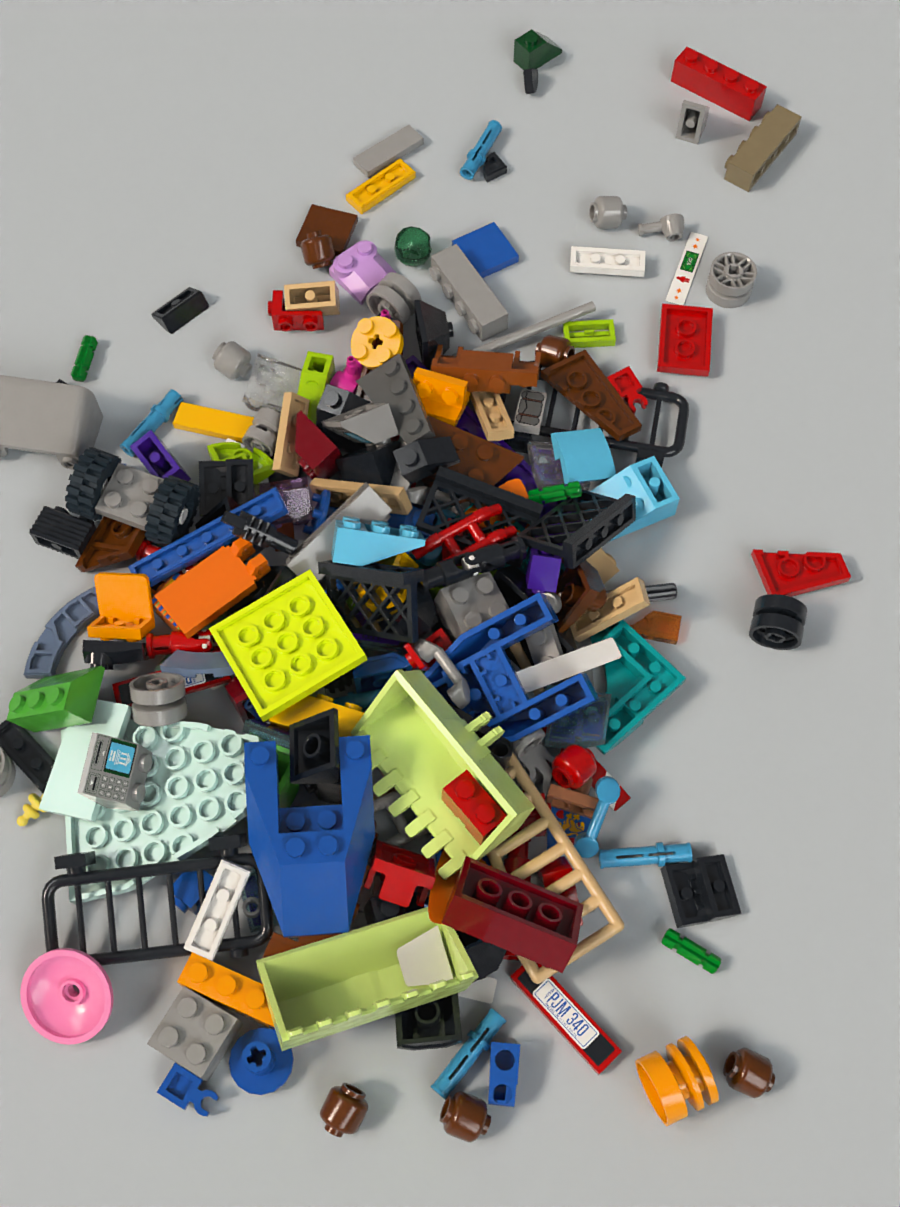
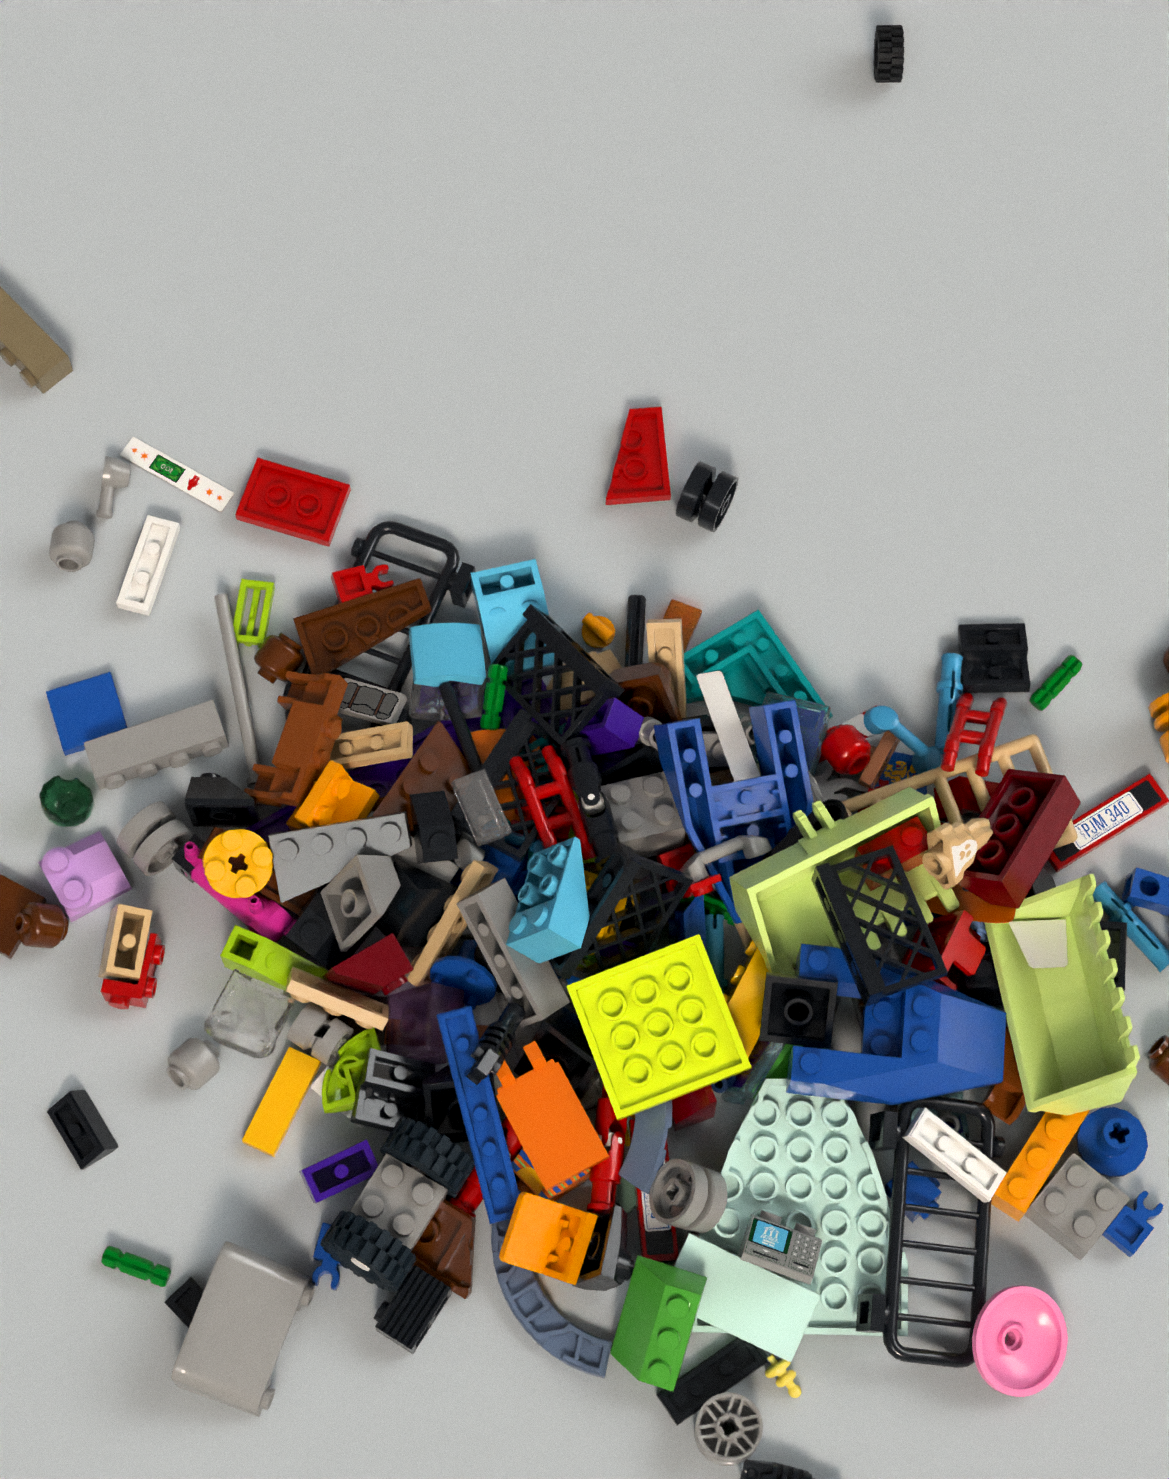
camera: 80 degrees left, 5 degrees up
(159, 414) = (256, 1173): dark azure pin -> none
(375, 772) = (849, 933): none -> black fence
(448, 485) = (481, 807): none -> clear tile
(483, 853) = (954, 849): none -> tan rock
(526, 471) = (460, 727): none -> black bar
(606, 879) = (985, 739): none -> red piece
(638, 565) = (597, 631): none -> light orange plate
(731, 279) = (220, 425): light grey wheel -> none

